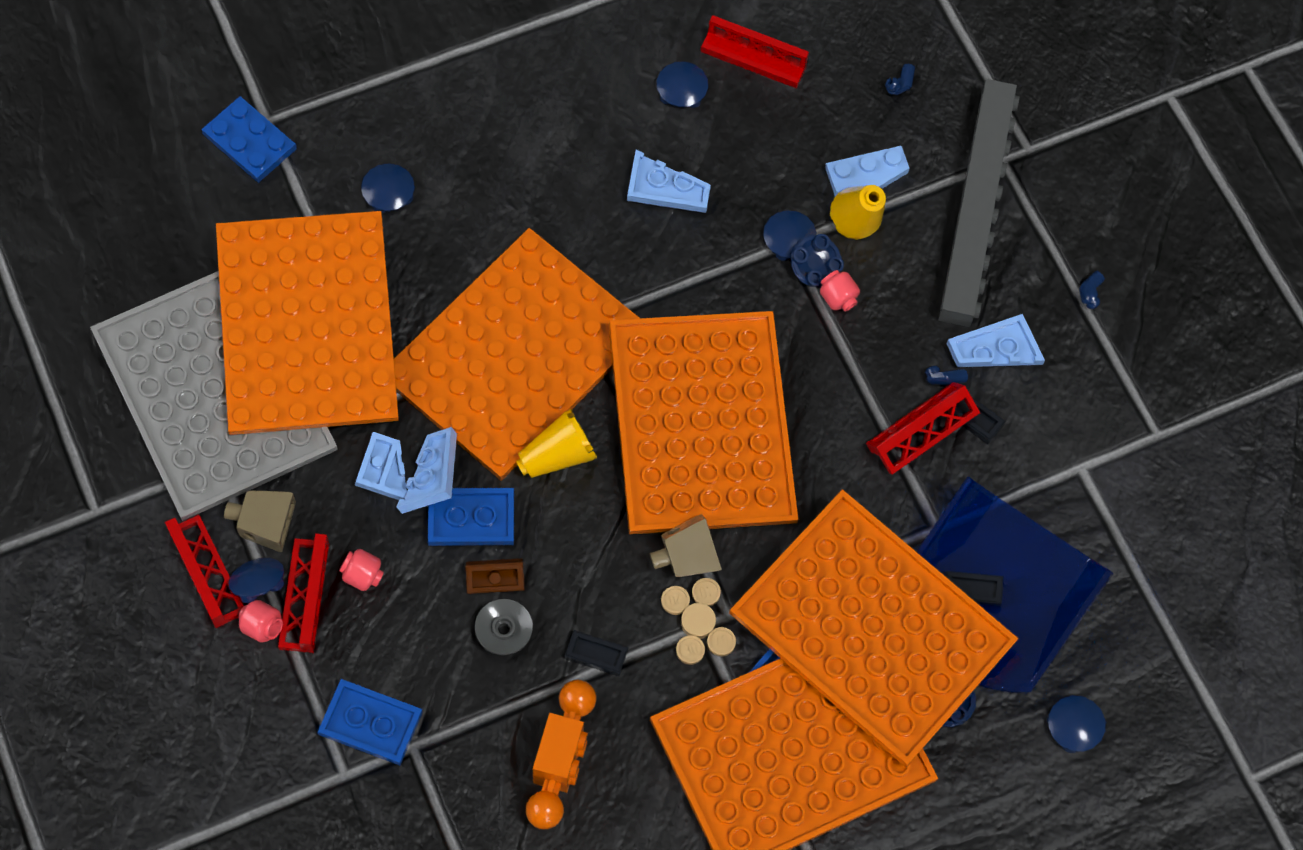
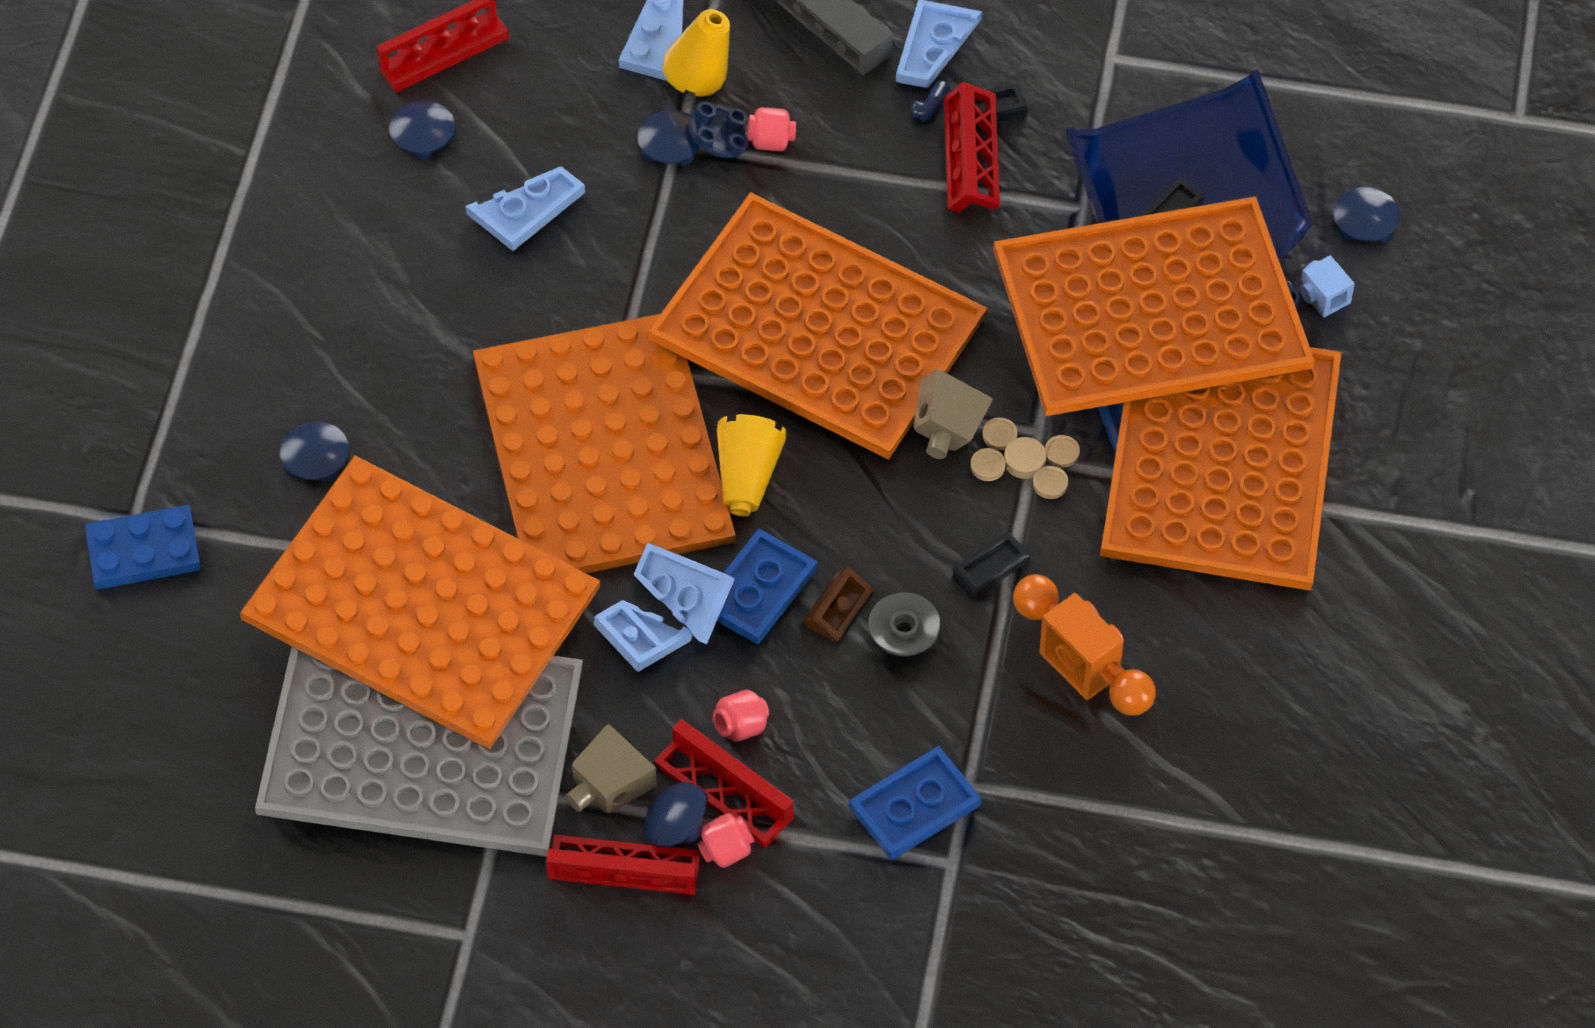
camera: 50 degrees left, 10 degrees down
(988, 732) = (1326, 286): none -> light blue brick

